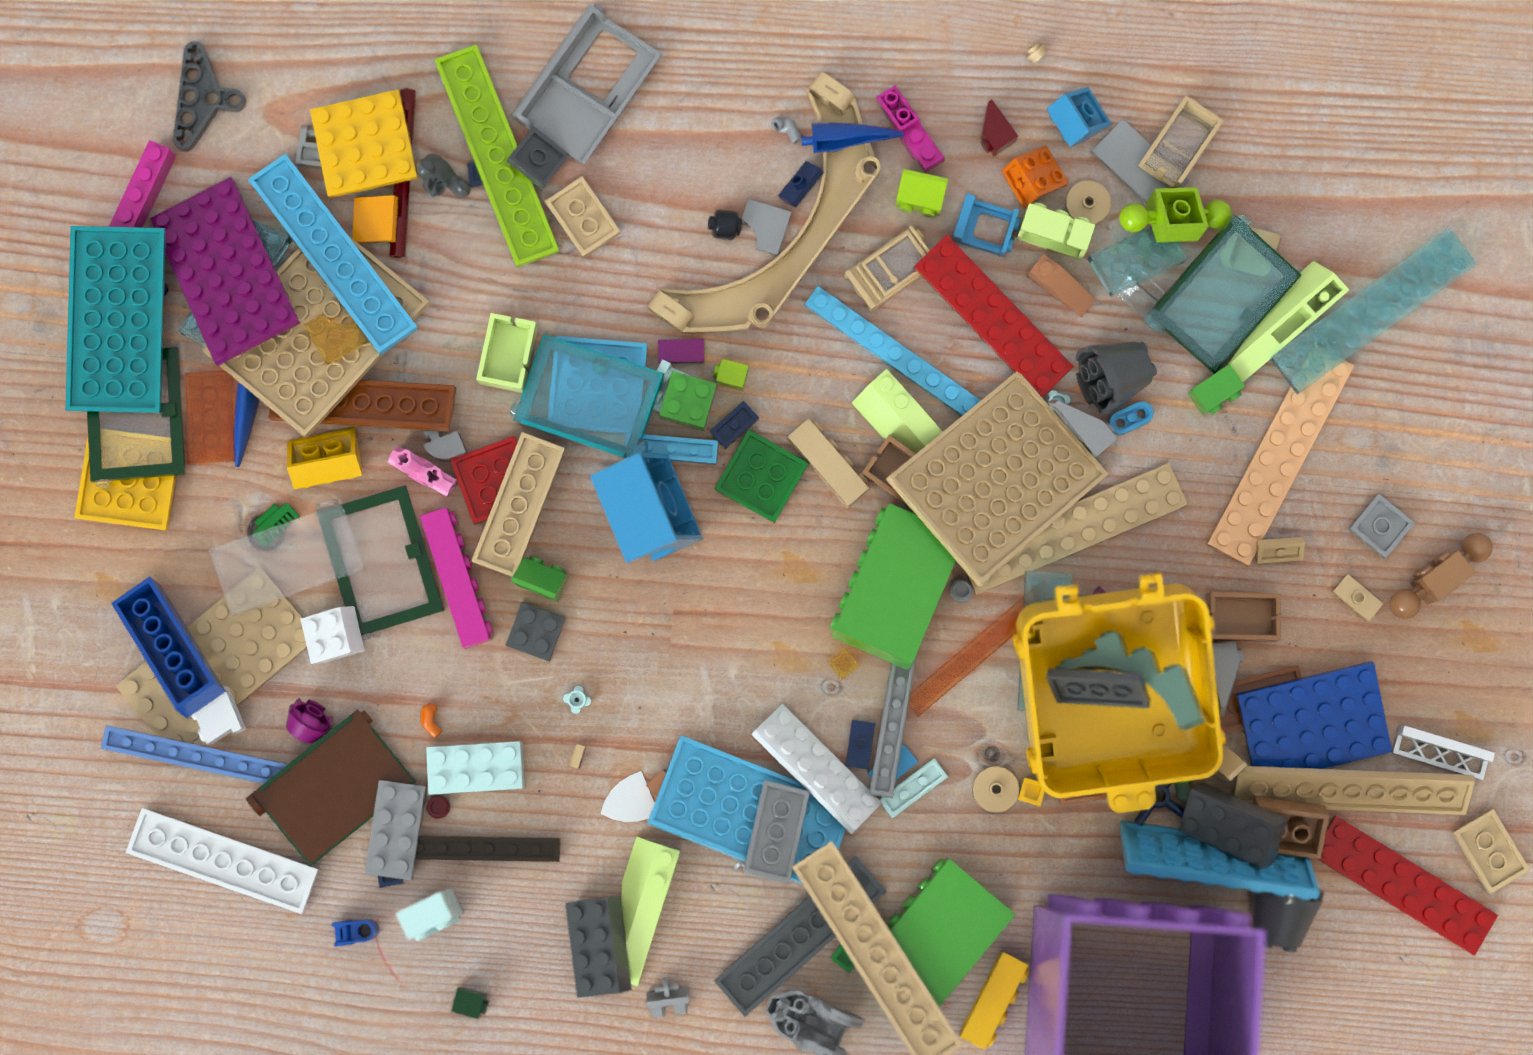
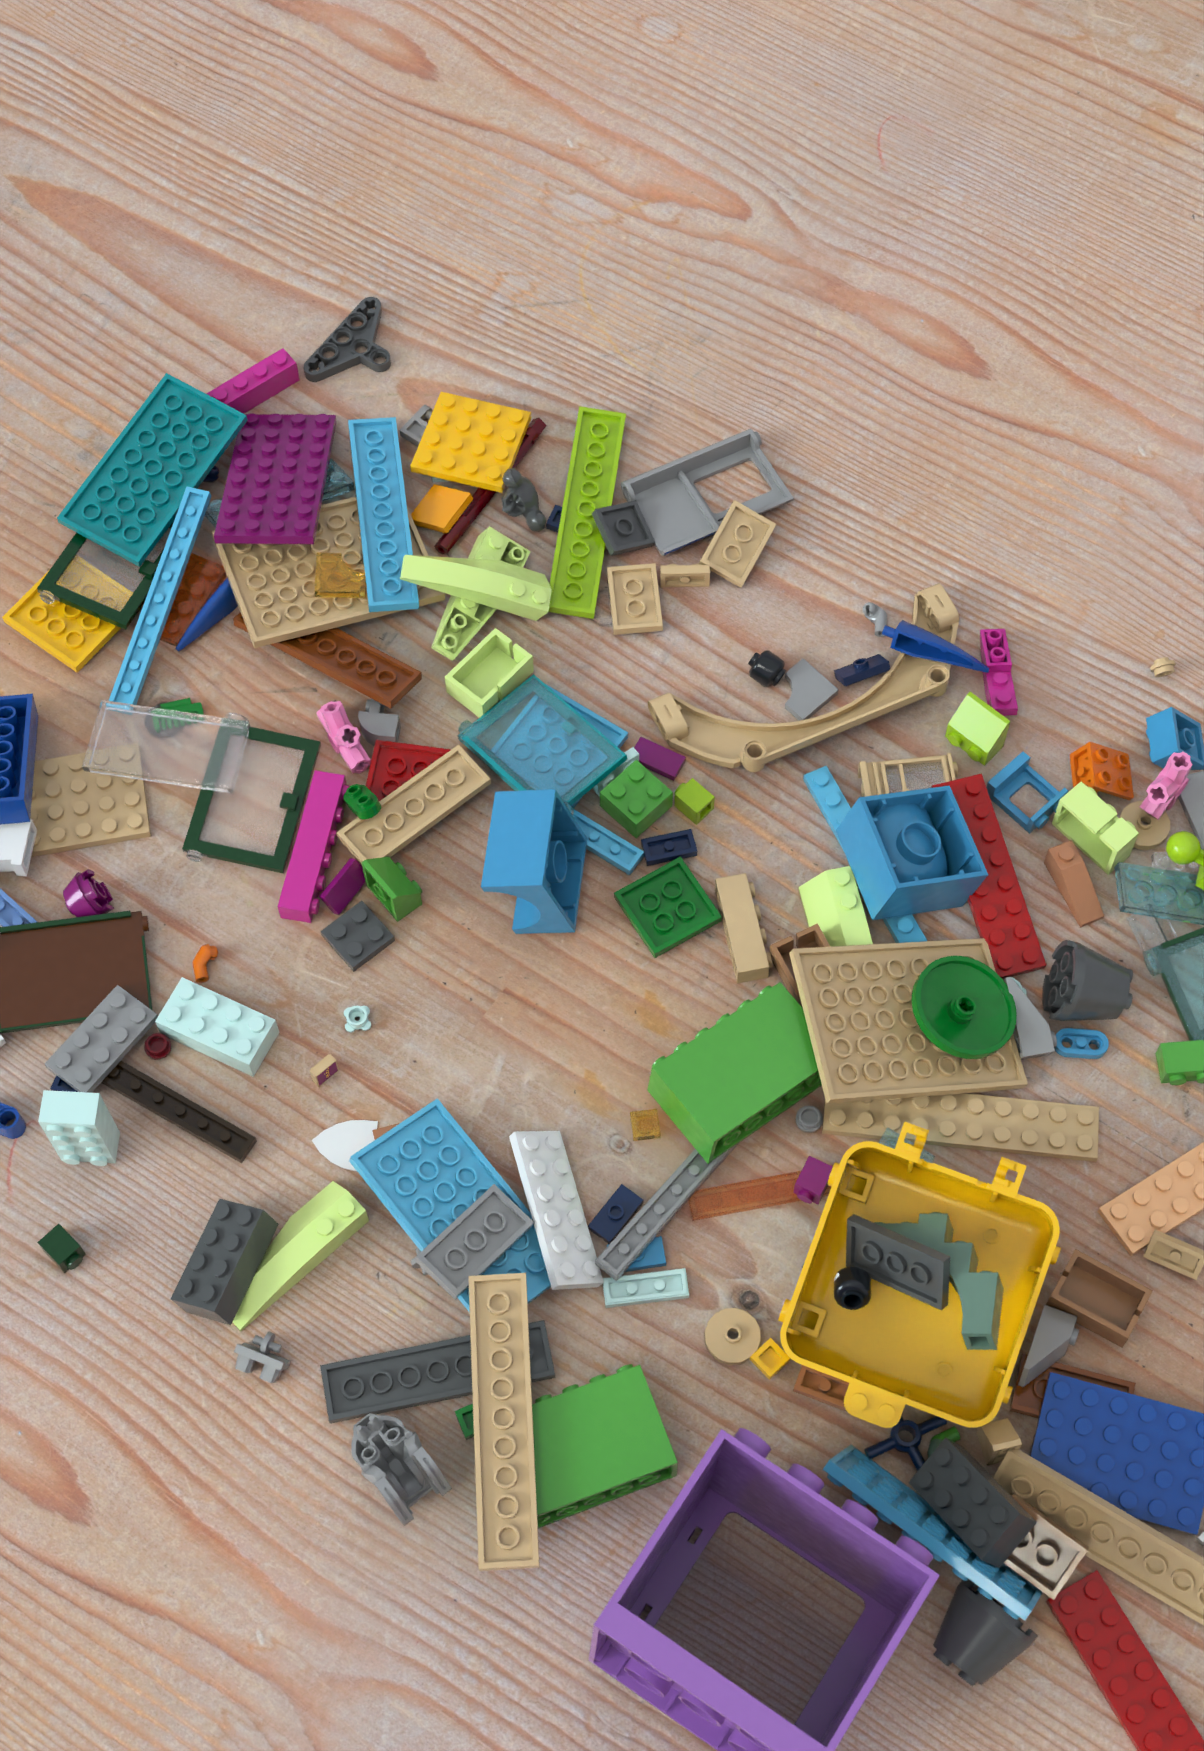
camera: 30 degrees right, 20 degrees down
(197, 432) = (160, 596): none -> medium azure plate
(324, 458) = (259, 682): yellow slope -> none
(332, 635) = (163, 832): white brick -> none
(453, 281) = (463, 617): none -> yellowish green wedge
(457, 275) = (483, 582): none -> yellowish green wedge
(475, 523) = (362, 801): none -> green plate
(501, 598) = (343, 886): none -> magenta tile
(605, 177) = (685, 575): none -> tan plate
(639, 122) = (737, 543): none -> tan plate
(929, 335) = (911, 852): none -> dark azure piece
(993, 642) = (812, 1181): none -> magenta brick
(993, 1000) = (600, 1556): yellow brick -> none
(996, 131) = (1084, 716): dark red slope -> none
(1036, 447) = (964, 1007): none -> green dish
(1073, 721) = (852, 1288): none -> black head
(1095, 169) = (1168, 785): none -> bright pink piece

